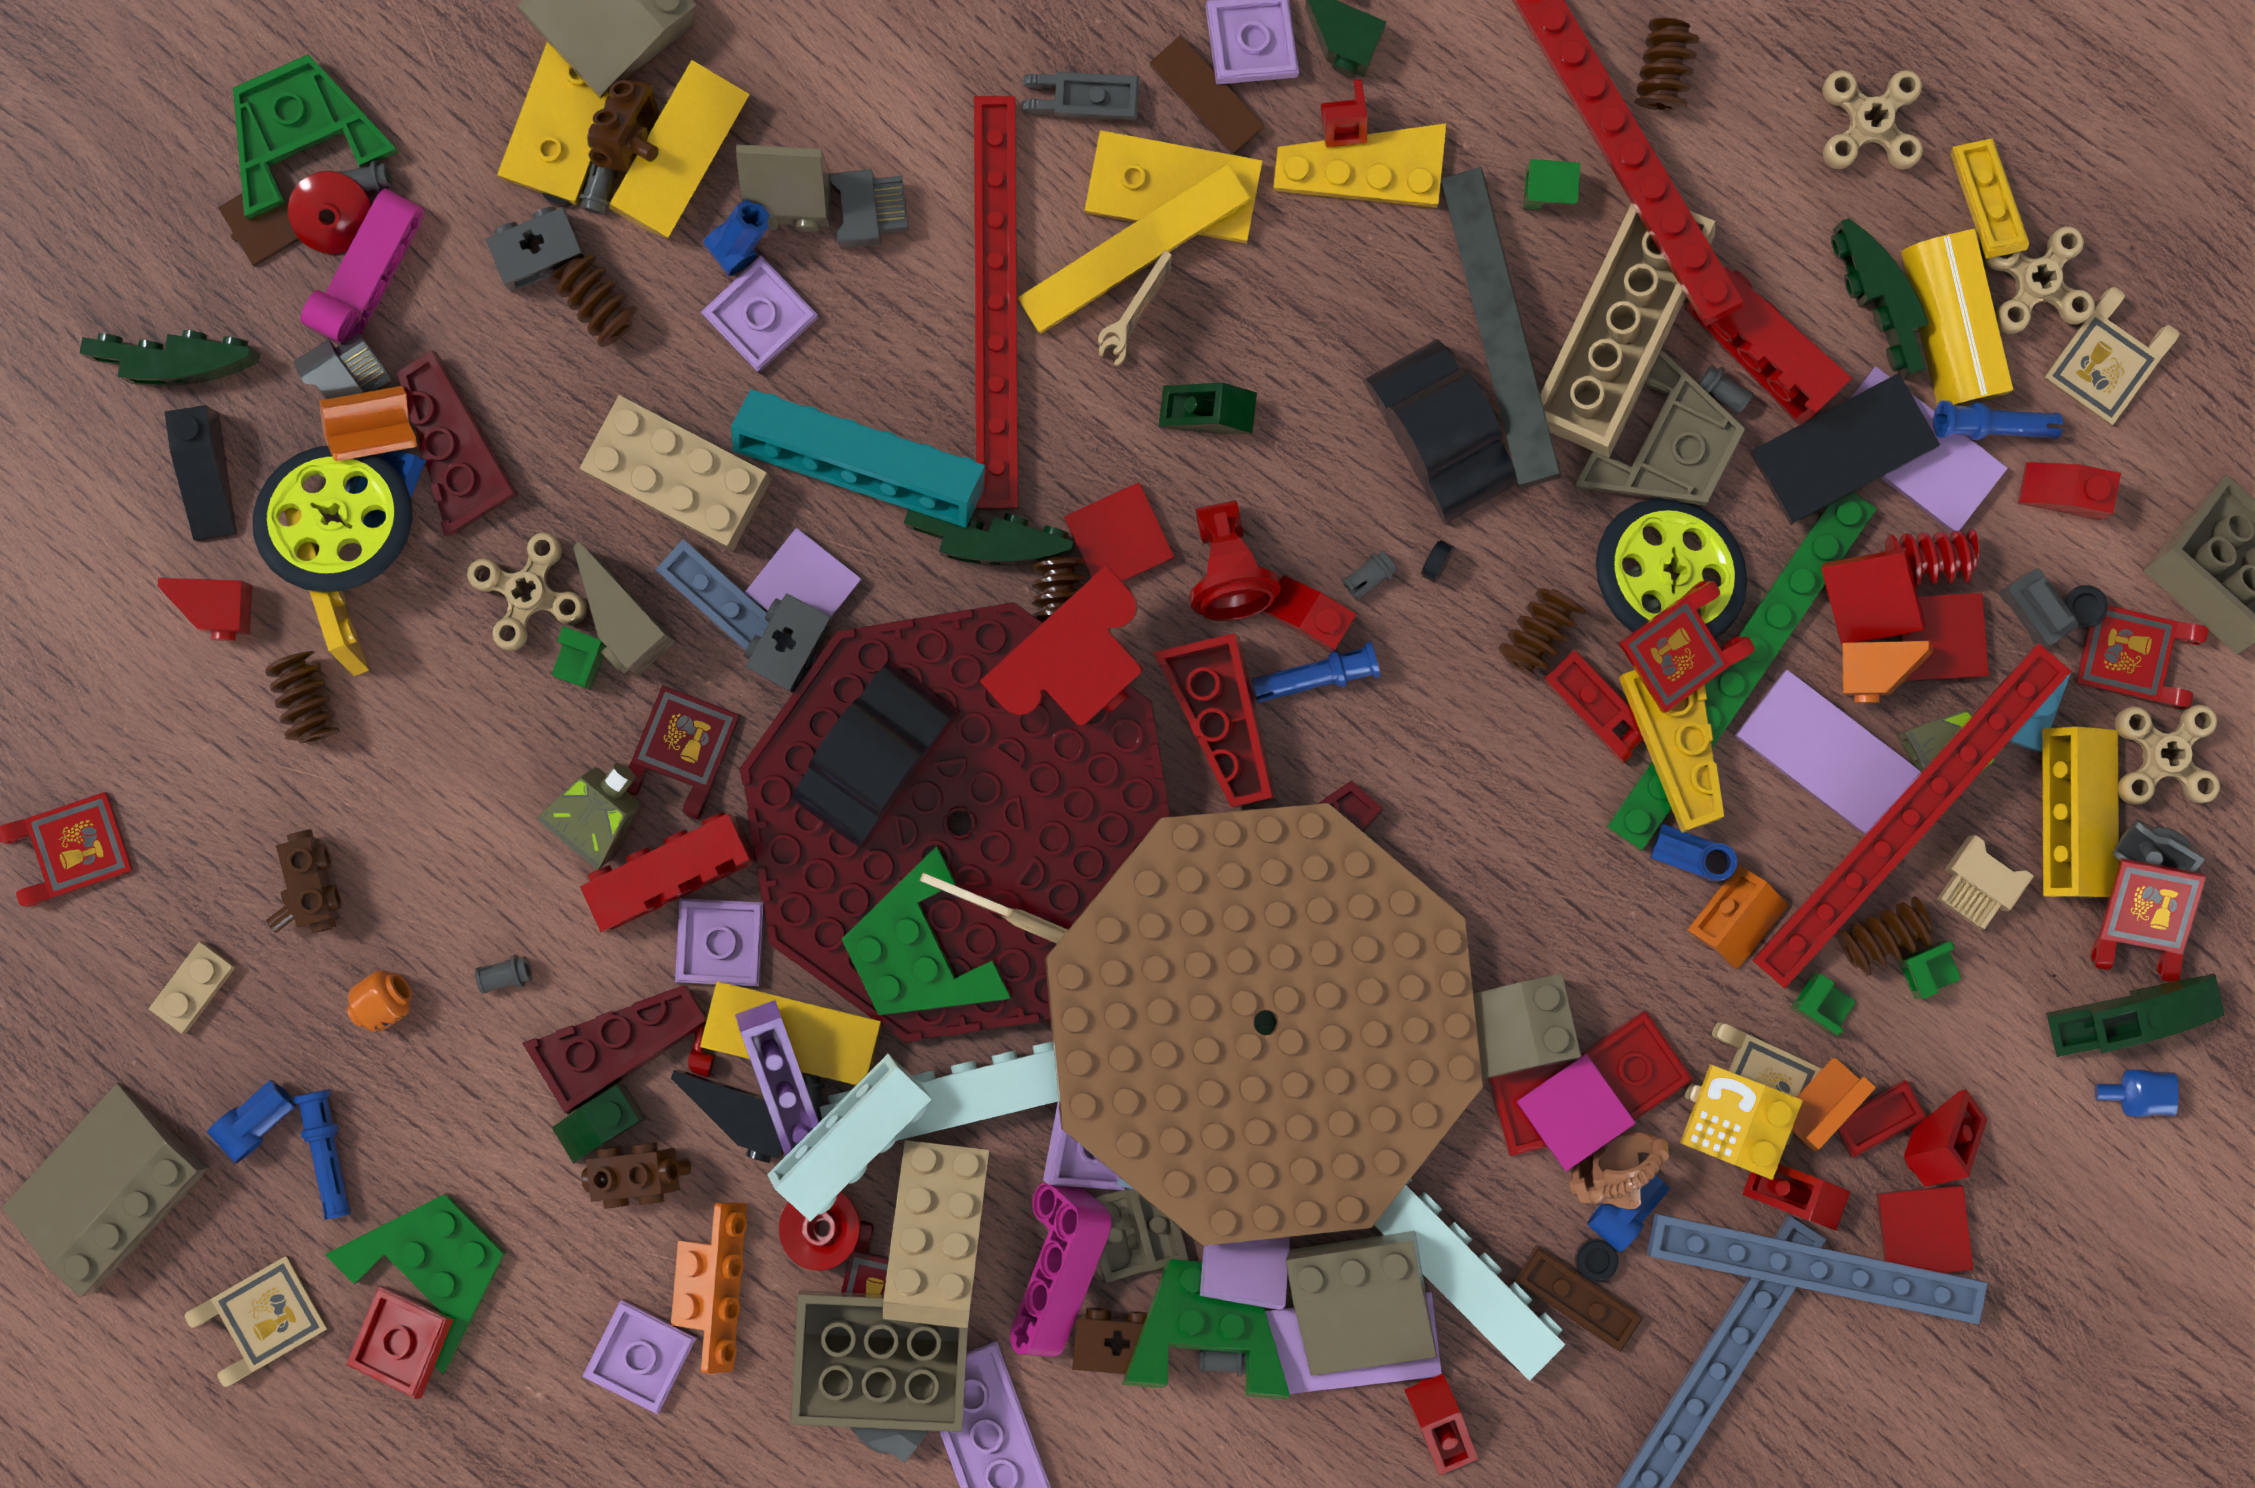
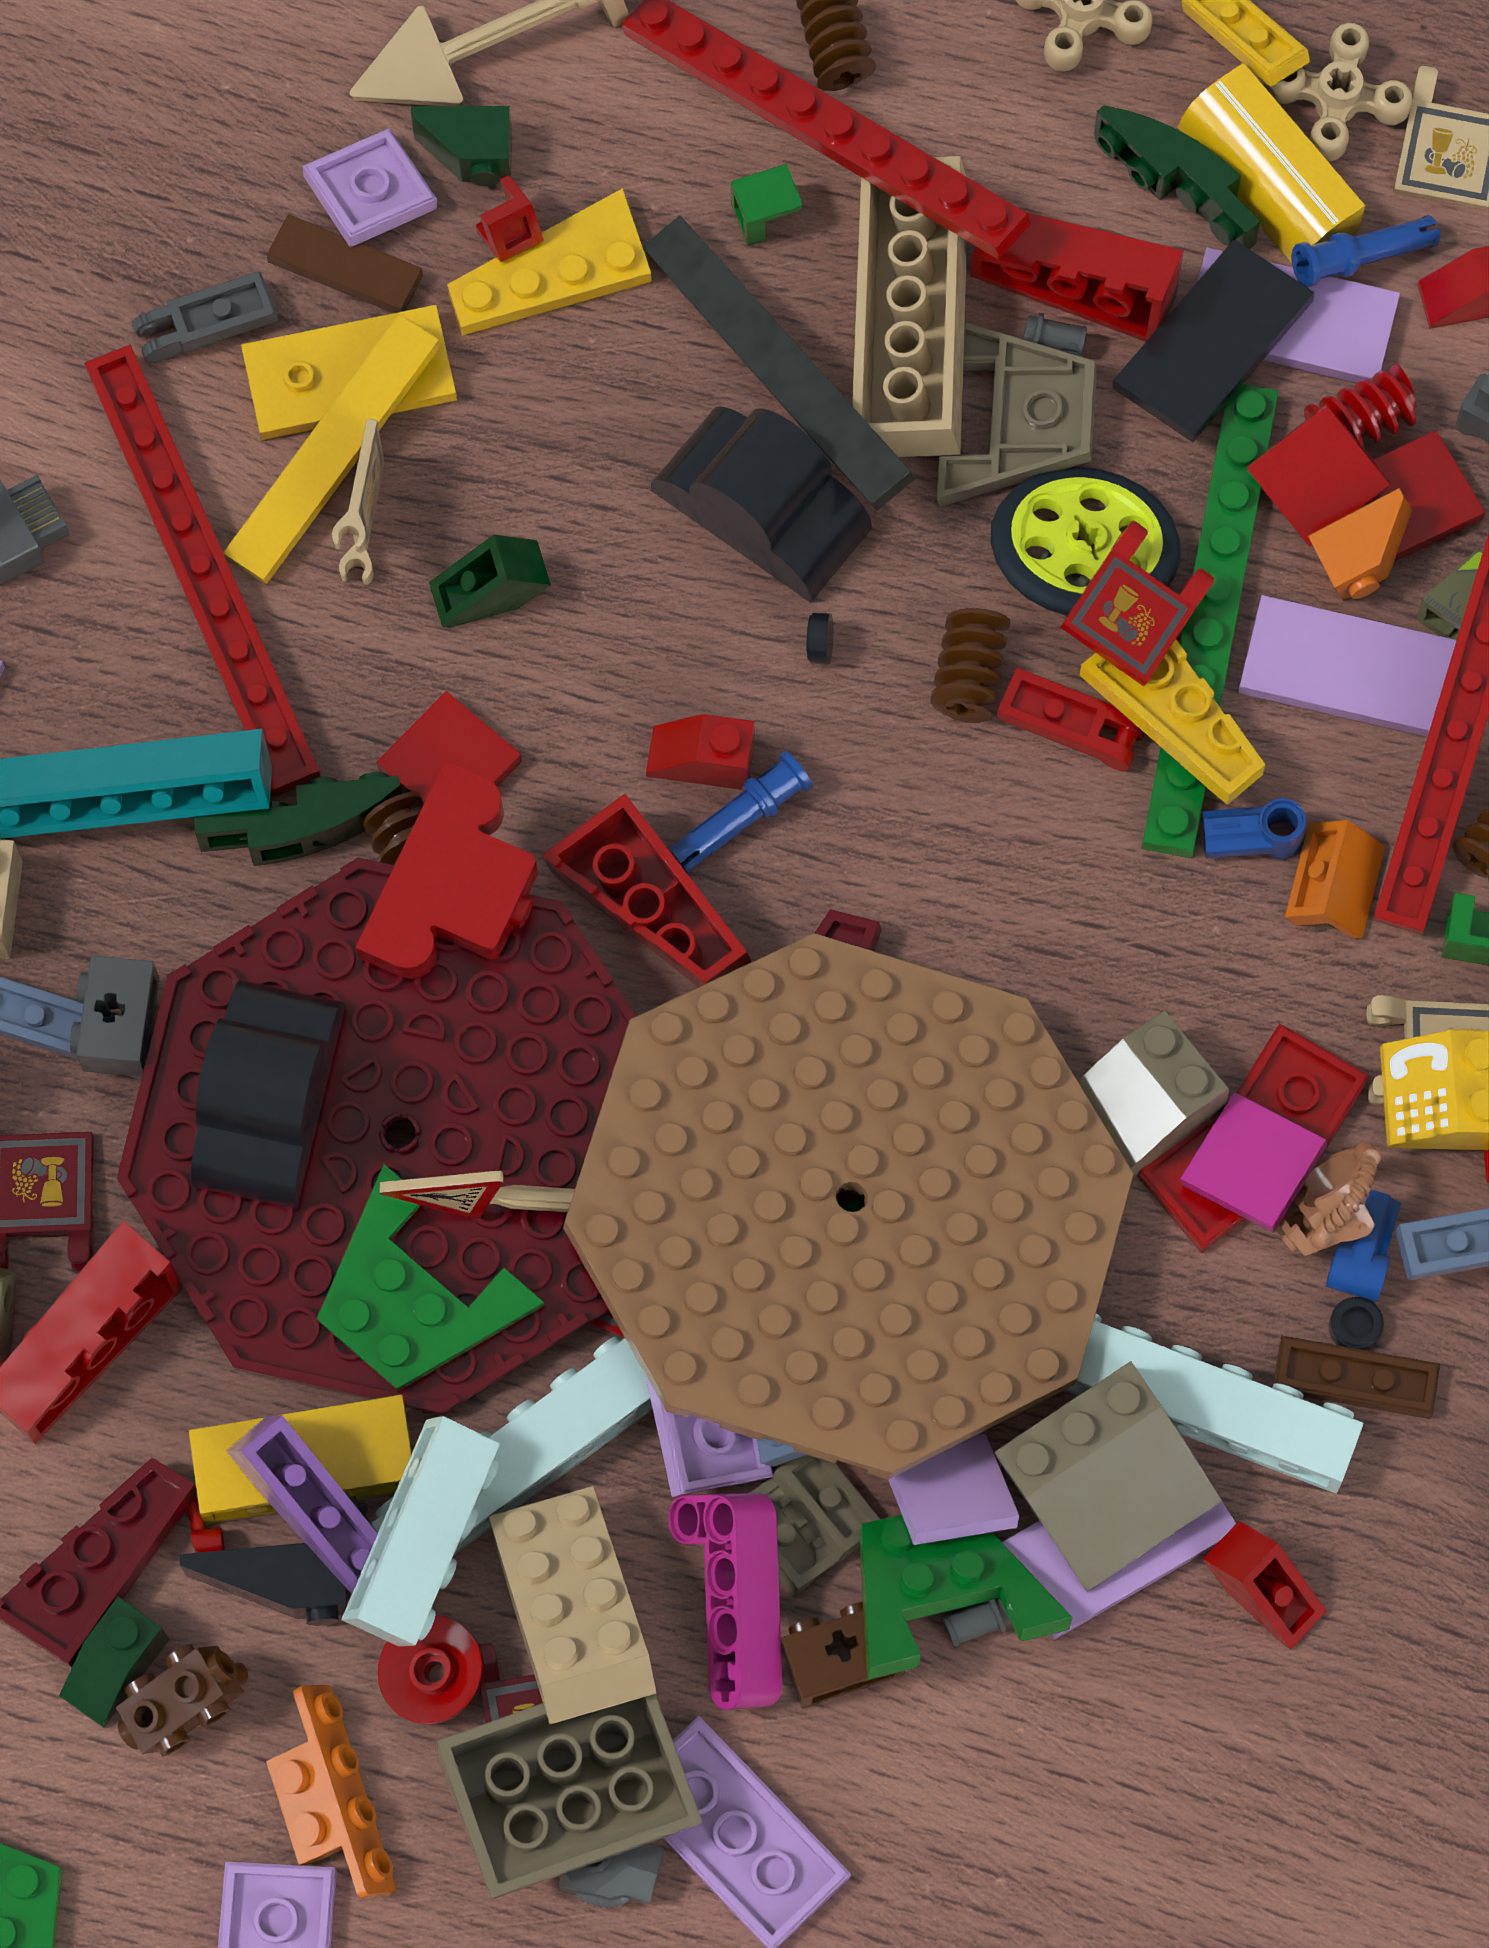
camera: 25 degrees left, 15 degrees down
(719, 942) = (171, 1392): lavender tile -> none
(806, 574) = (103, 932): lavender tile -> none
(1233, 580) = (604, 744): red piece -> none
(1370, 575) = (755, 678): dark grey pin -> none

